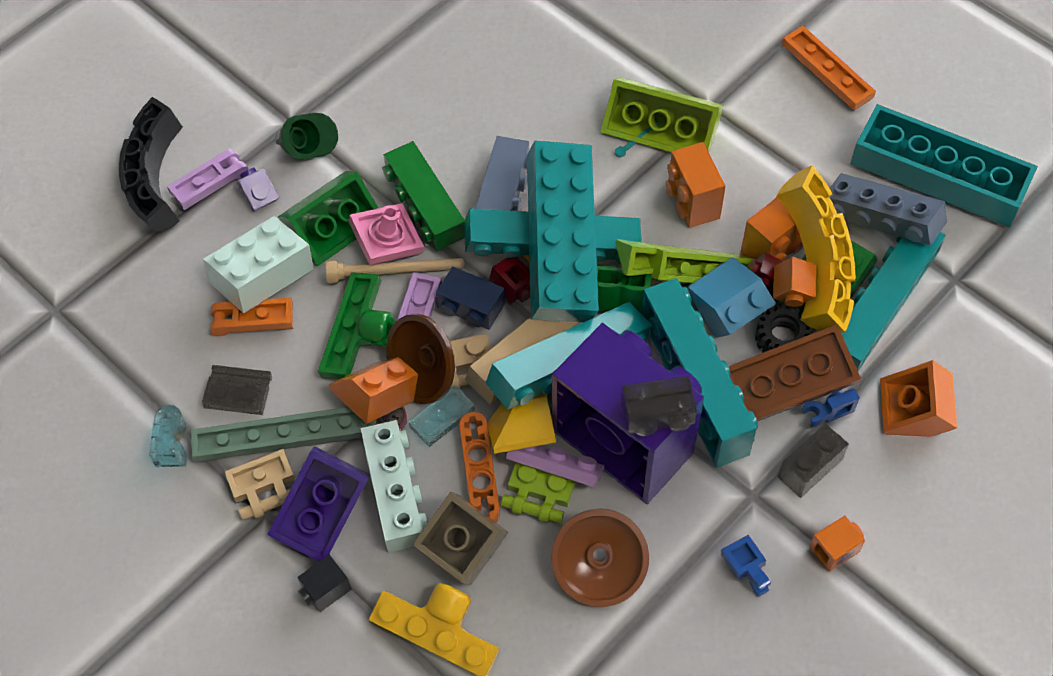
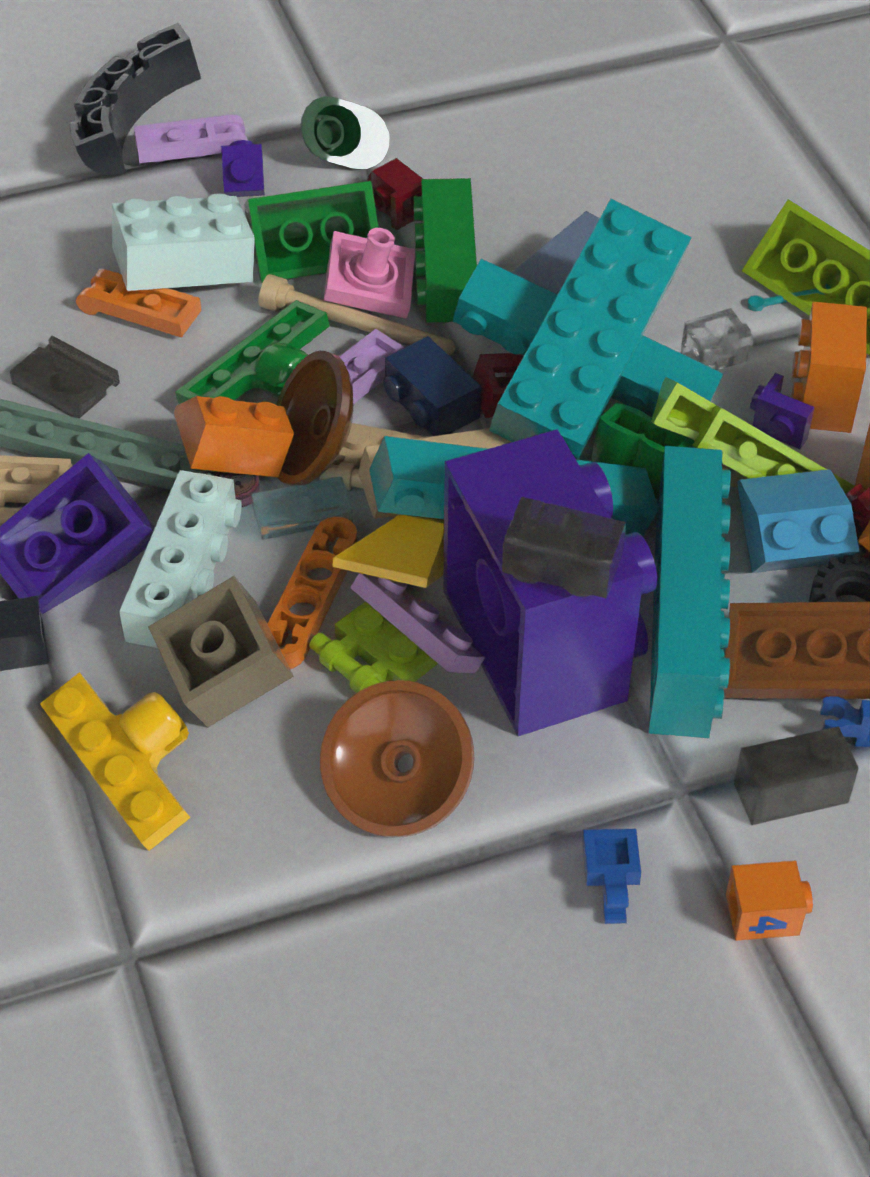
camera: 25 degrees right, 10 degrees down
(367, 163) = (394, 191): none -> dark red brick
(617, 193) = (717, 339): none -> clear brick
(679, 228) = (781, 415): none -> dark purple bracket

